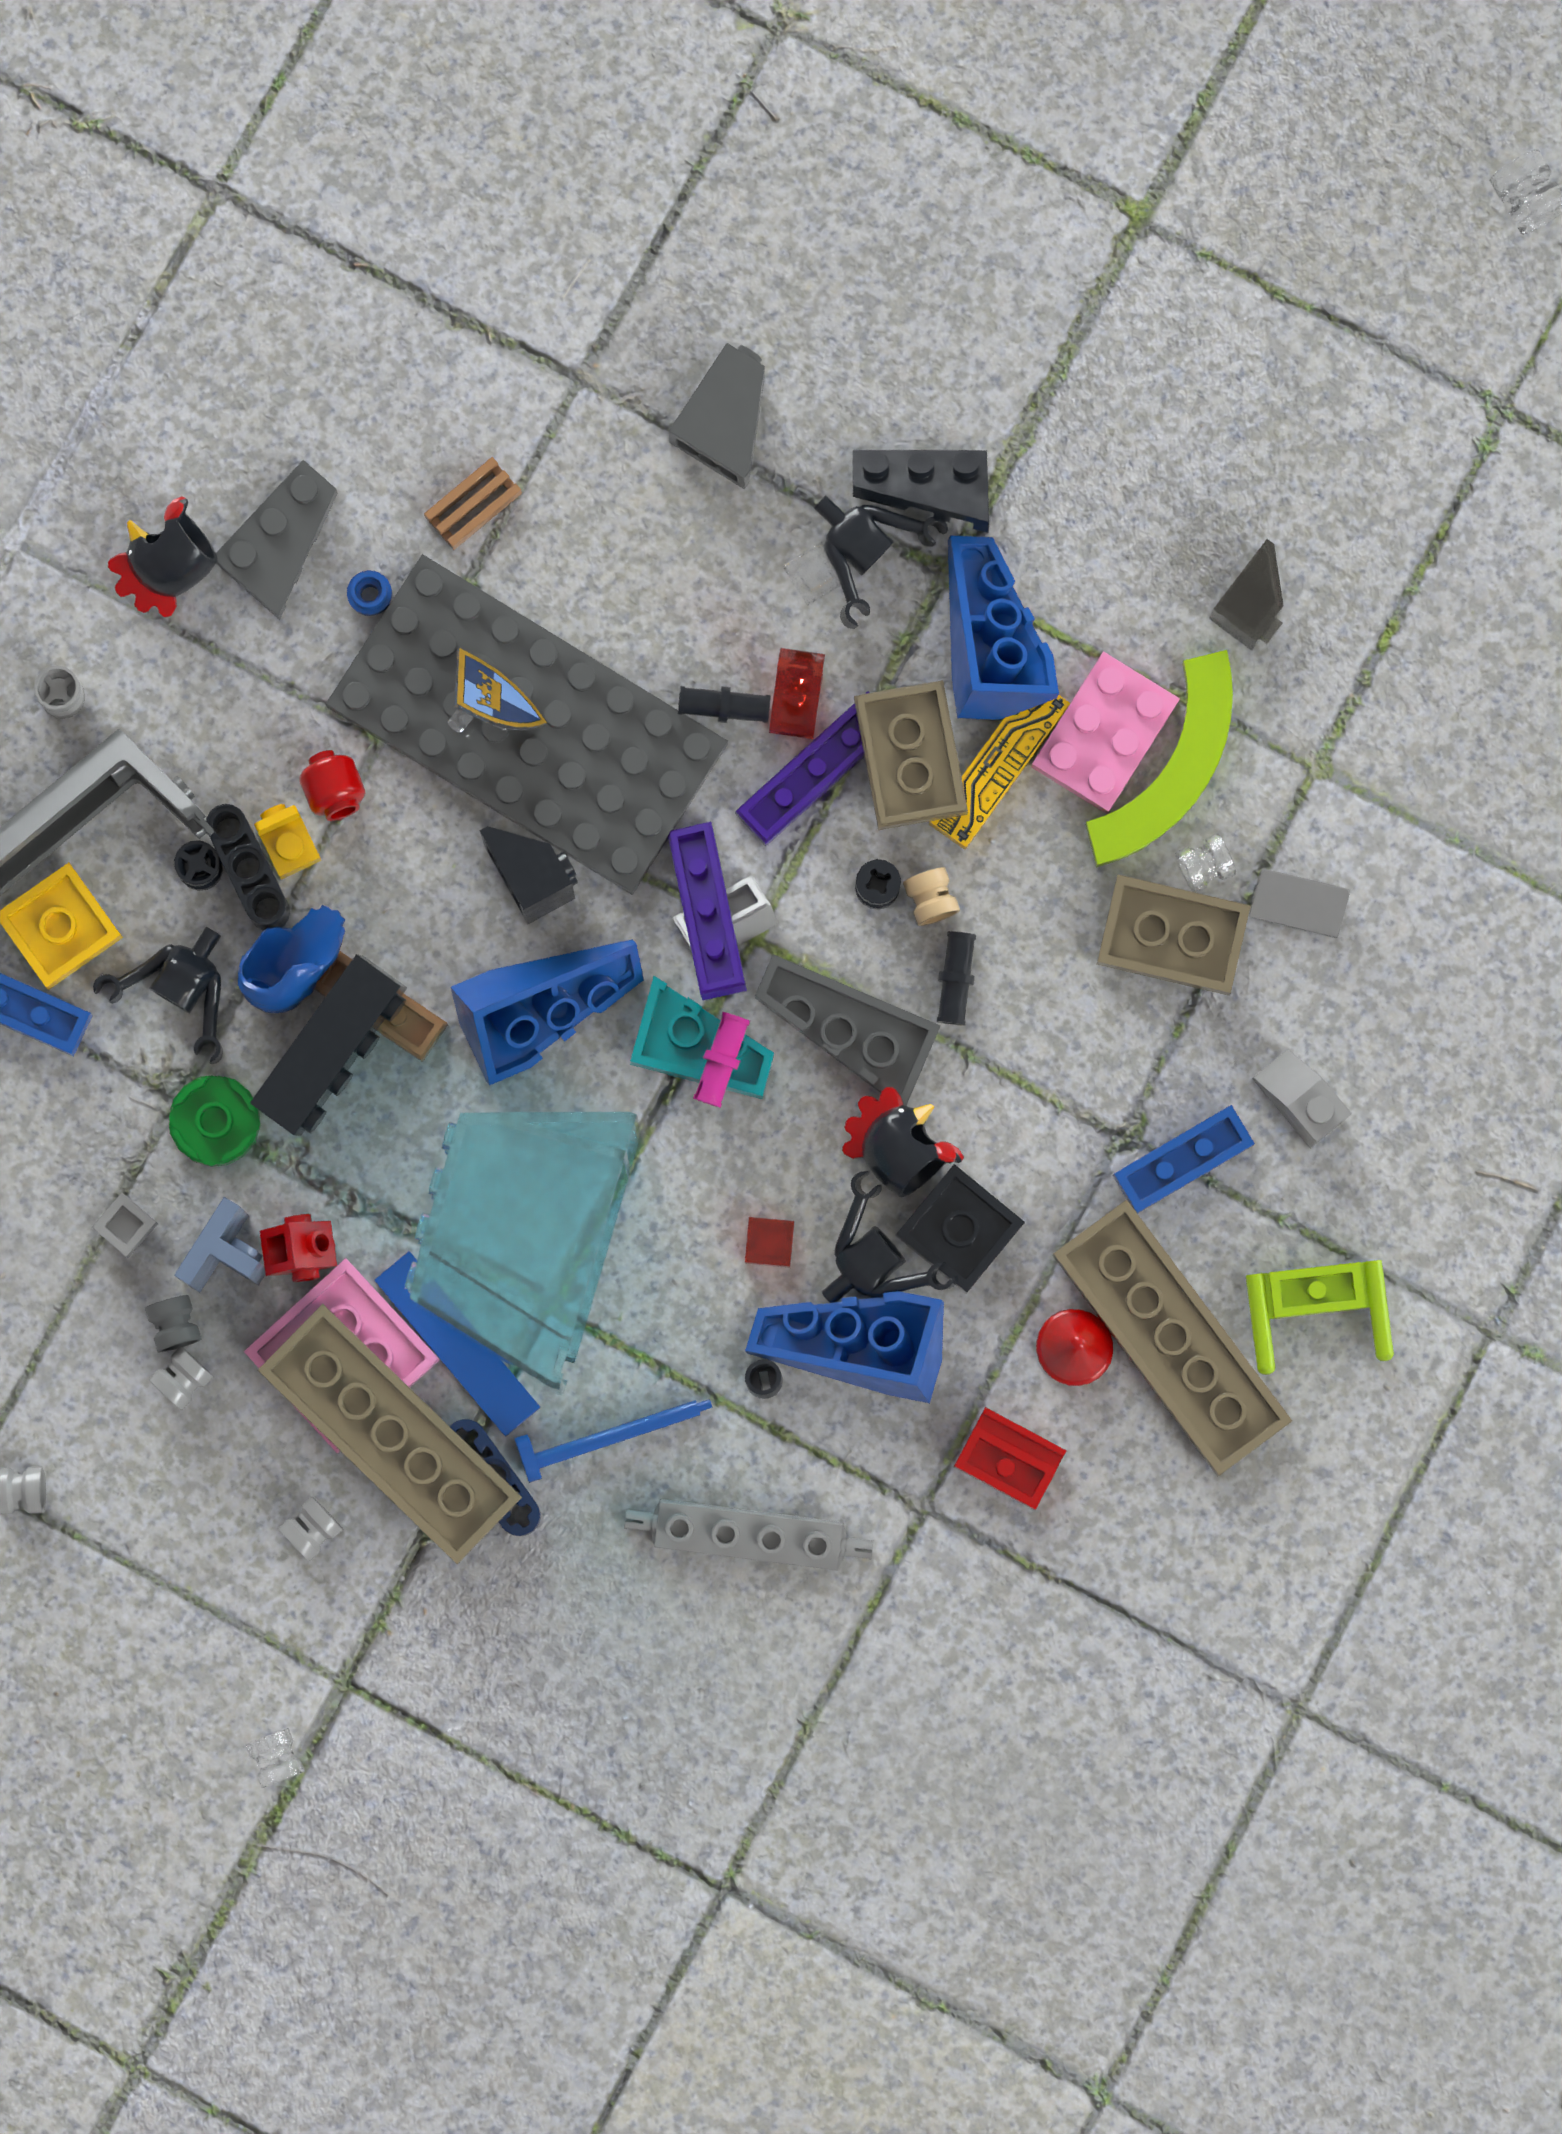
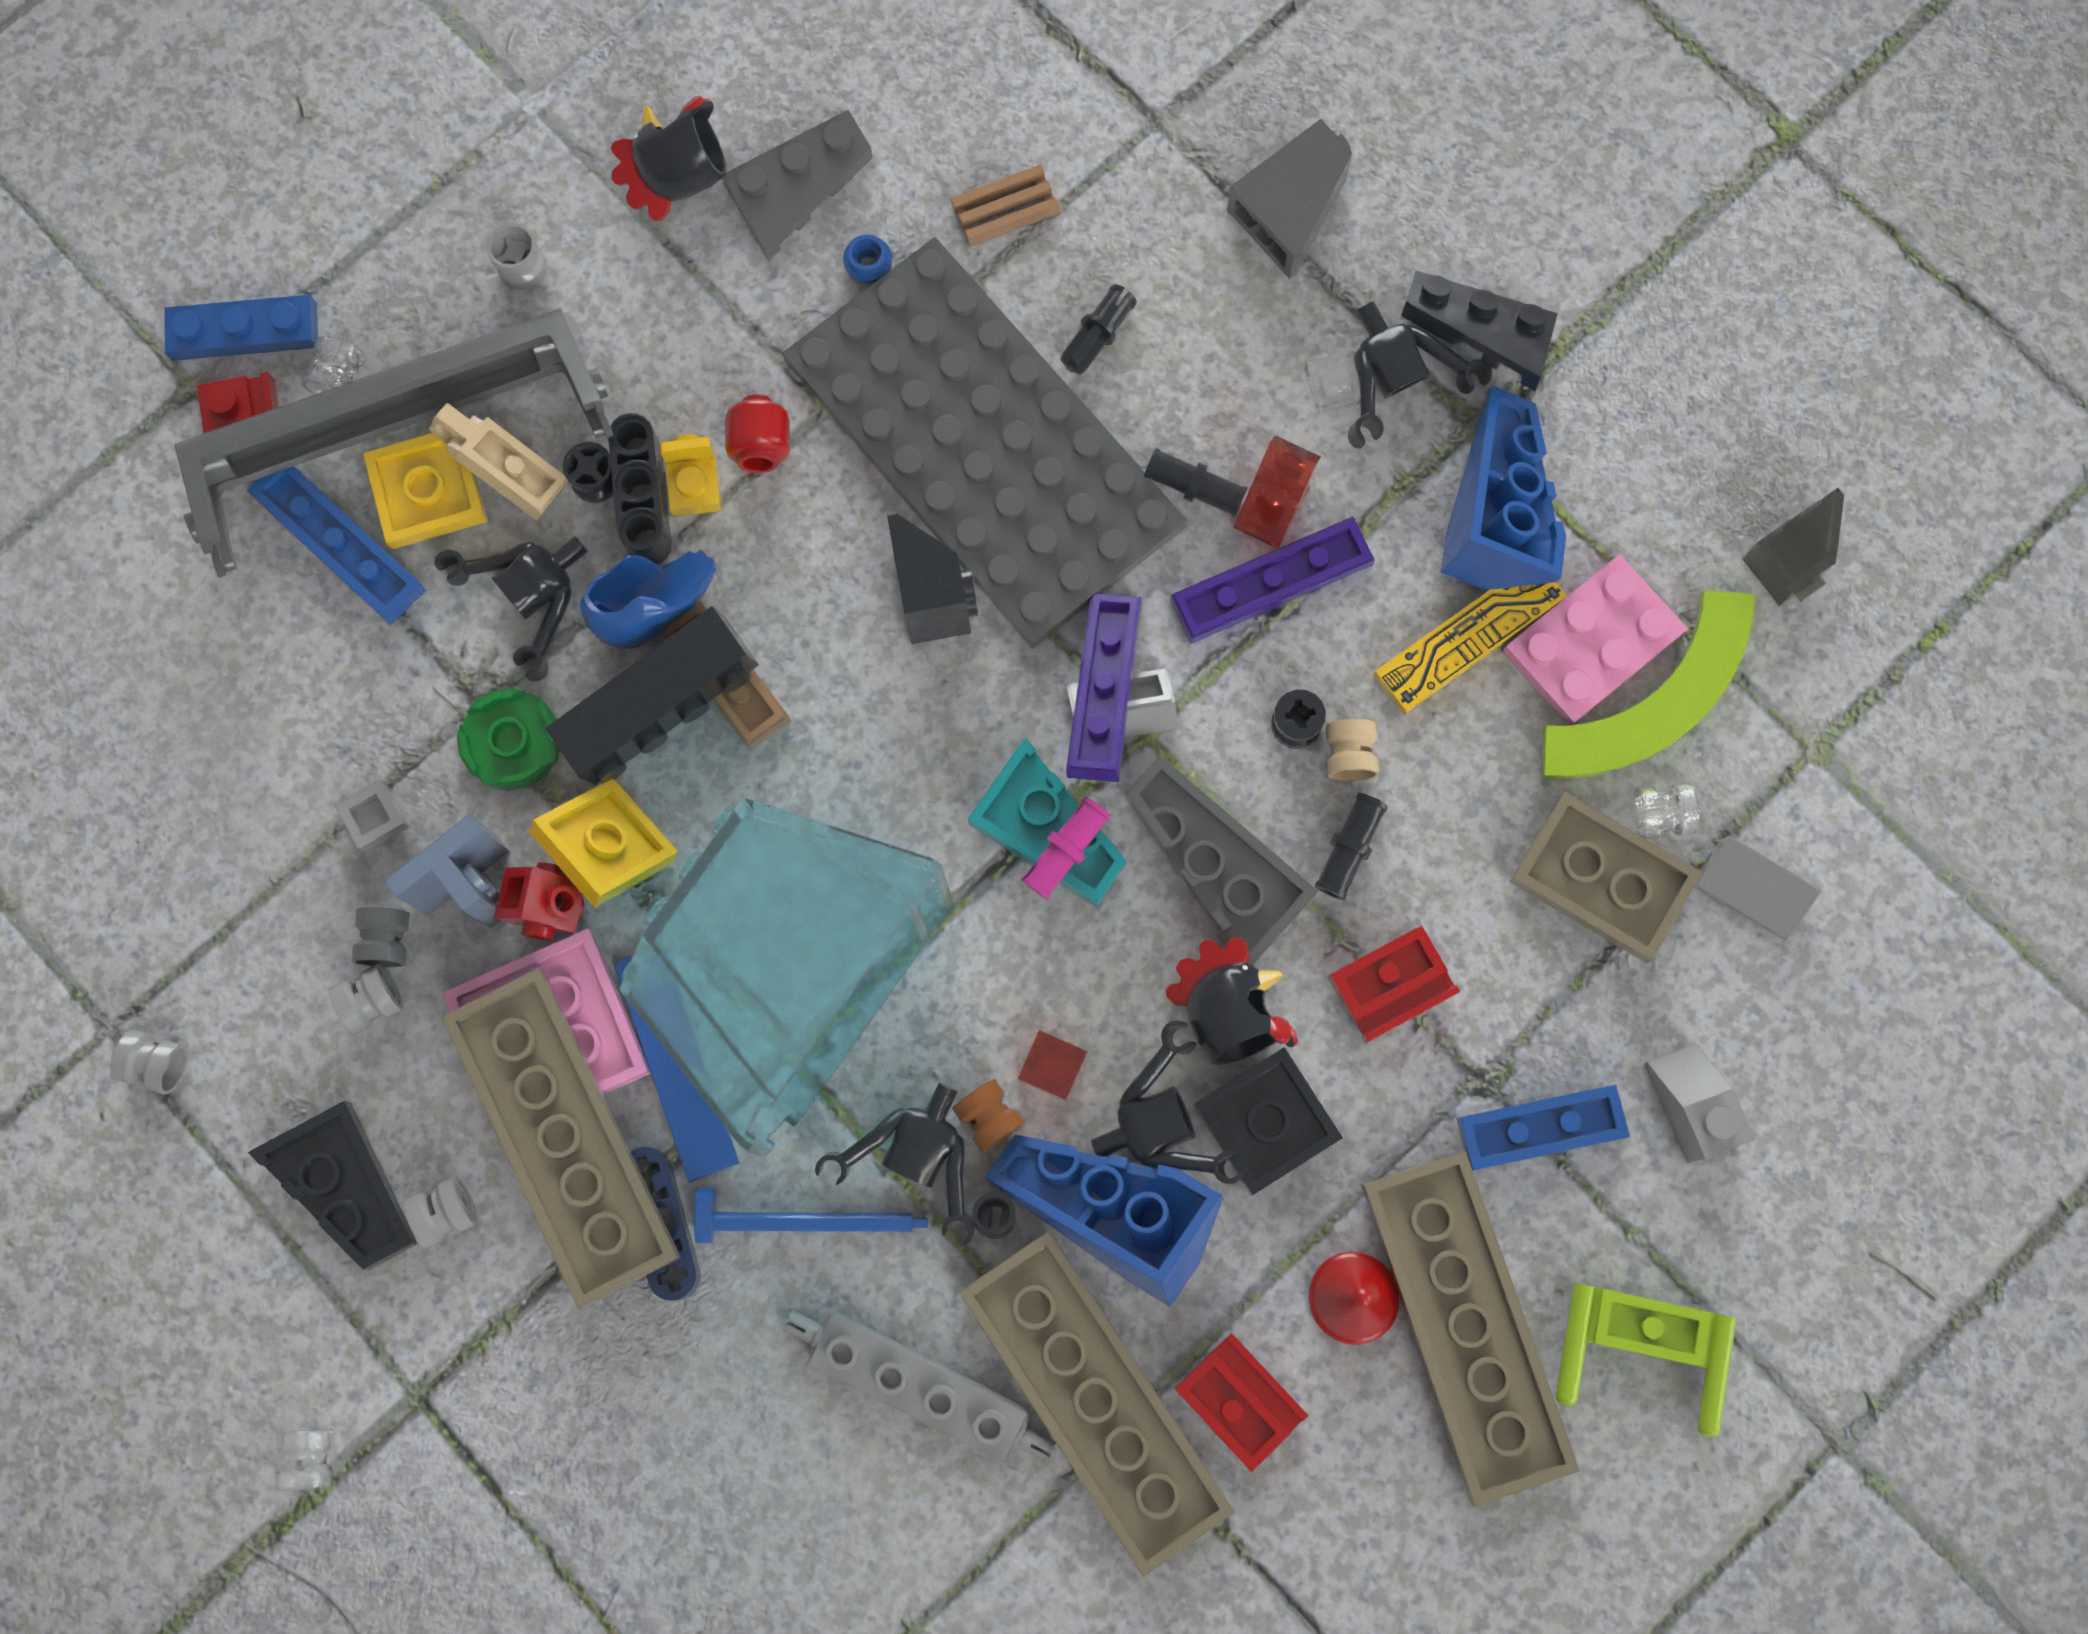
camera: 25 degrees right, 5 degrees down
(118, 883) = (499, 460): none -> tan hinge
(217, 1533) = (341, 1183): none -> black wing
(333, 1182) = (603, 842): none -> yellow plate
(490, 697) = (950, 391): shield -> none
(530, 1005) = (884, 726): blue wedge -> none
(594, 594) = (1097, 330): none -> black axle
(684, 1348) = (917, 1151): none -> black piece
(731, 1300) = (989, 1117): none -> dark orange wheel
(894, 1497) = (1097, 1403): none -> dark tan plate
(910, 755) = (1377, 595): dark tan tile -> none
(1027, 1082) = (1393, 984): none -> red plate

